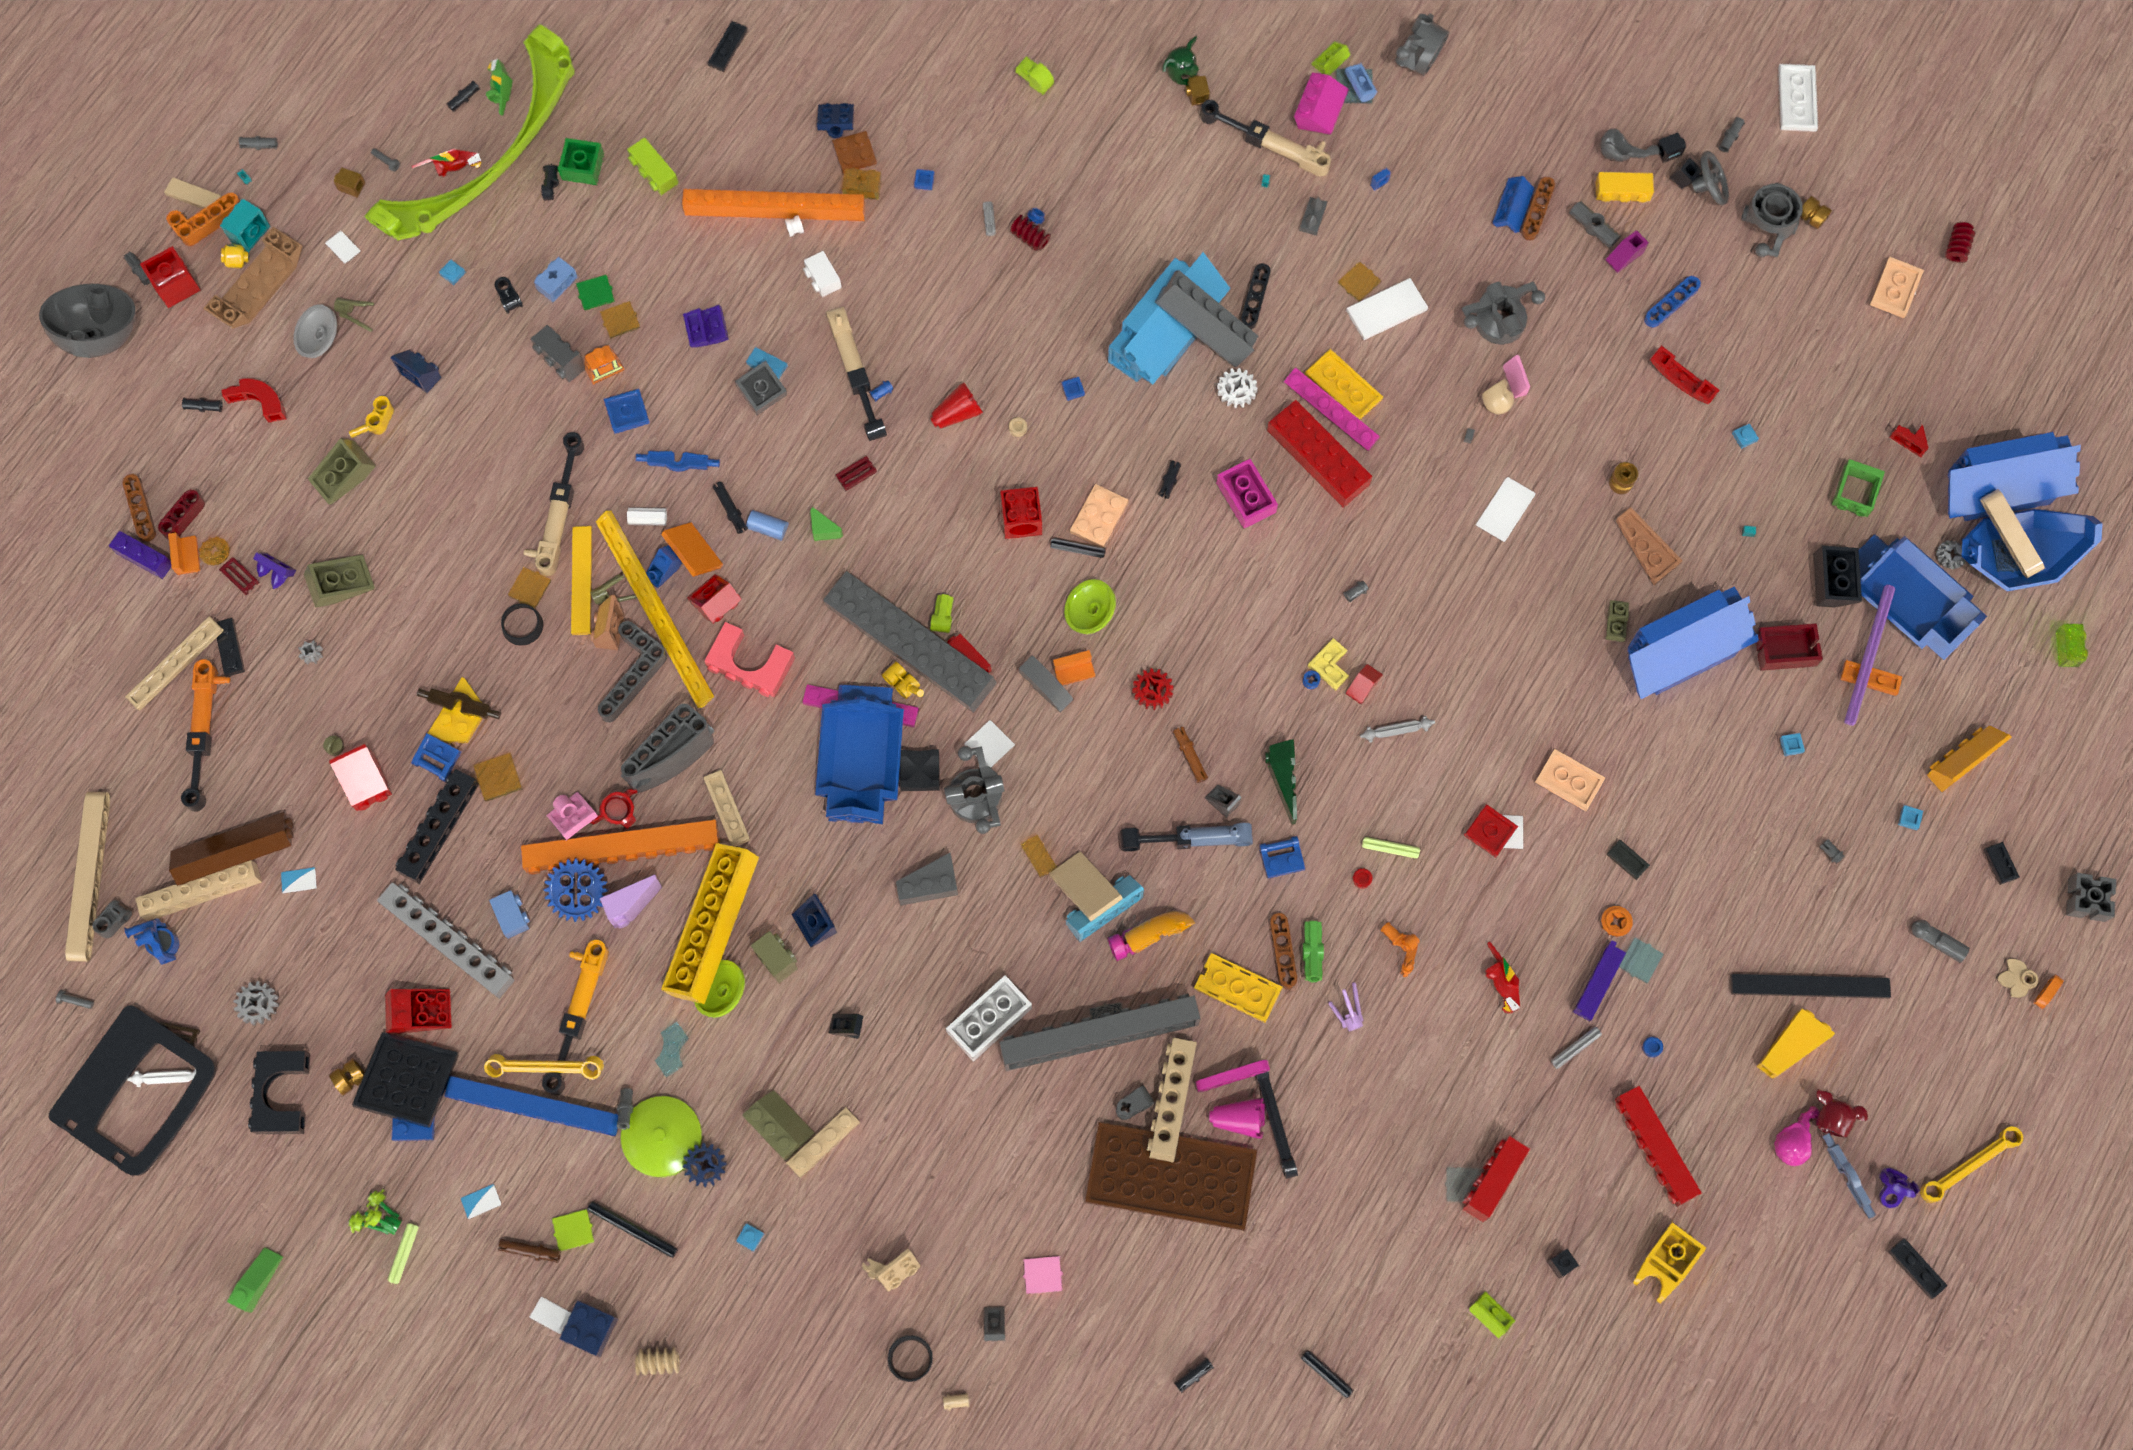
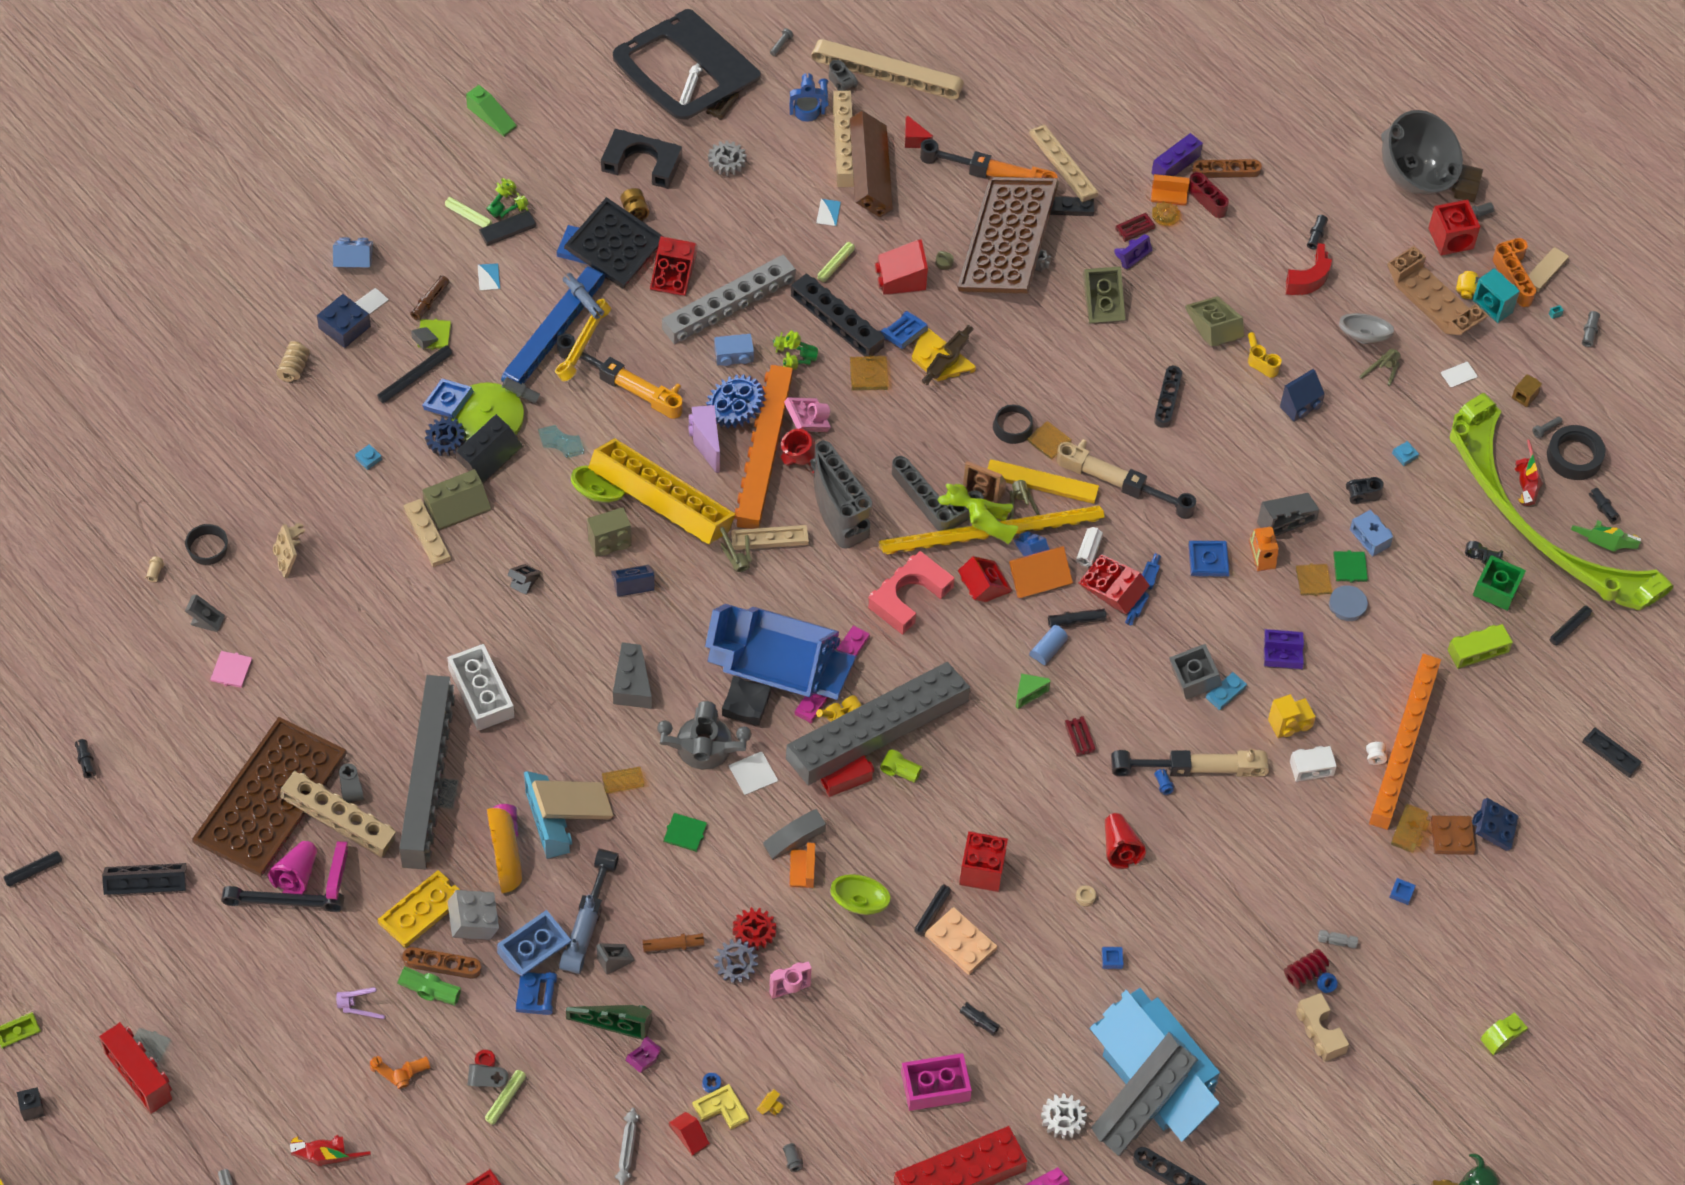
camera: 105 degrees right, 15 degrees down
(106, 276) = (1468, 183): none -> dark brown brick
(173, 821) = (915, 133): none -> red slope
(288, 687) = (1008, 235): none -> plate
(365, 851) = (836, 261): none -> yellowish green axle
(404, 110) = (1570, 470): none -> black tyre
(411, 1204) = (507, 228): none -> black tile
(446, 489) = (1168, 396): none -> black beam
(490, 1083) = (578, 290): none -> sand blue pin
(492, 850) = (793, 340): none -> lime plant
(494, 1356) = (352, 253): none -> medium blue slope
(584, 1236) = (423, 337): none -> dark grey slope
(604, 100) = (1570, 625): none -> black axle
(638, 284) = (1348, 603): none -> sand blue tile
(647, 617) = (981, 512): none -> lime animal
(656, 1180) = (448, 398): none -> plate
(683, 484) = (1114, 583): none -> red slope
(709, 1113) = (489, 448): none -> black slope
(764, 826) = (739, 561): none -> olive plant
(781, 300) = (1290, 716): none -> yellow brick
(1070, 221) = (1327, 1043): none -> tan arch
(1072, 783) = (685, 832): none -> green piece
(1185, 693) = (741, 954): none -> gear
(1200, 643) = (790, 979): none -> bright pink plate
(1232, 934) = (473, 914): none -> light grey brick
(1242, 870) = (532, 944): none -> medium blue slope
(1301, 1258) = (144, 878): none -> black fence
(1310, 742) = (644, 1056): none -> magenta bracket
(1314, 624) = (770, 1104): none -> yellow tile
(1381, 868) = (483, 1075): none -> dark grey piece

